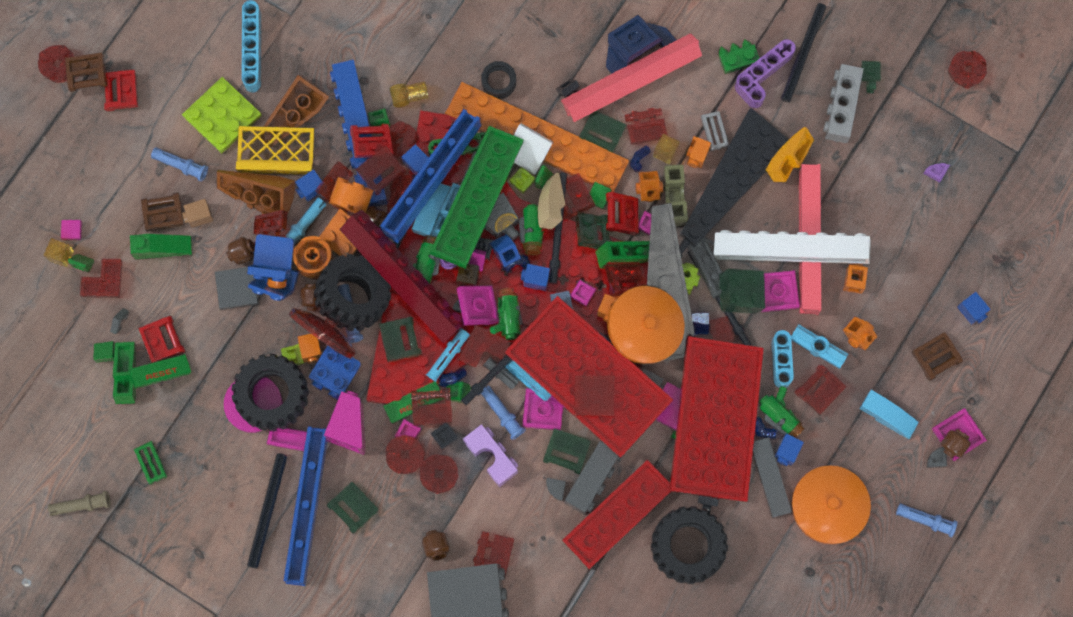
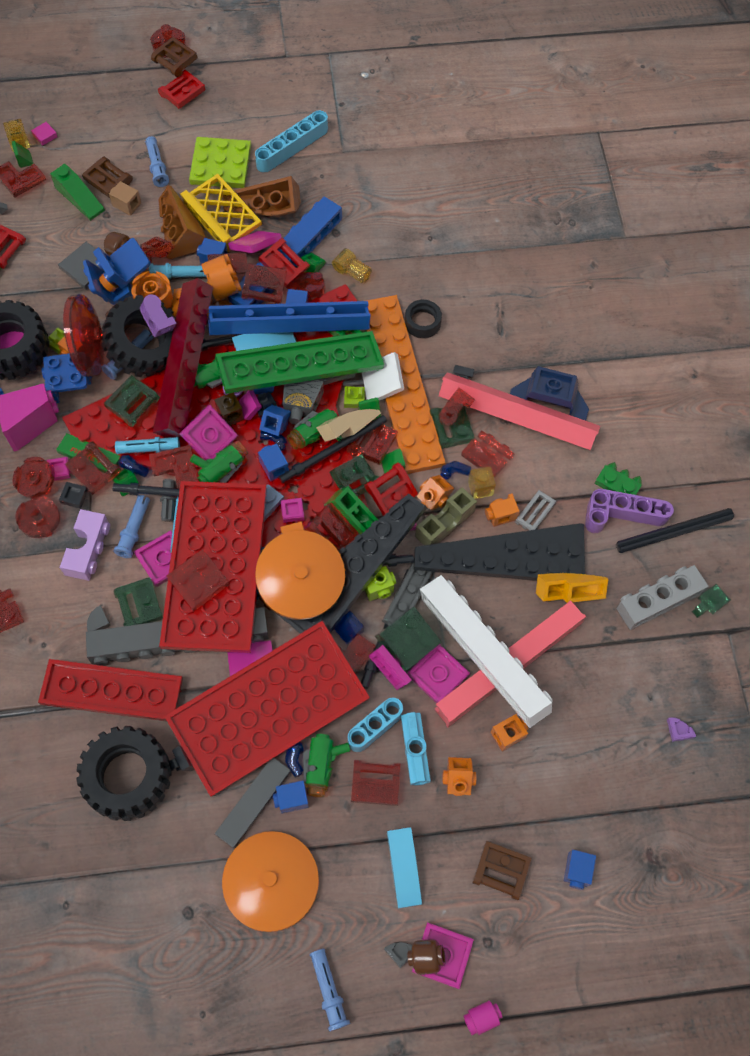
camera: 50 degrees right, 10 degrees down
(330, 147) = (254, 242): none -> dark pink tile
(355, 270) = (155, 316): none -> medium lavender leg
(596, 119) = (450, 411): none -> clear red leg
(752, 318) = (390, 667): none -> dark pink plate
(1014, 439) = (483, 1018): none -> dark pink brick

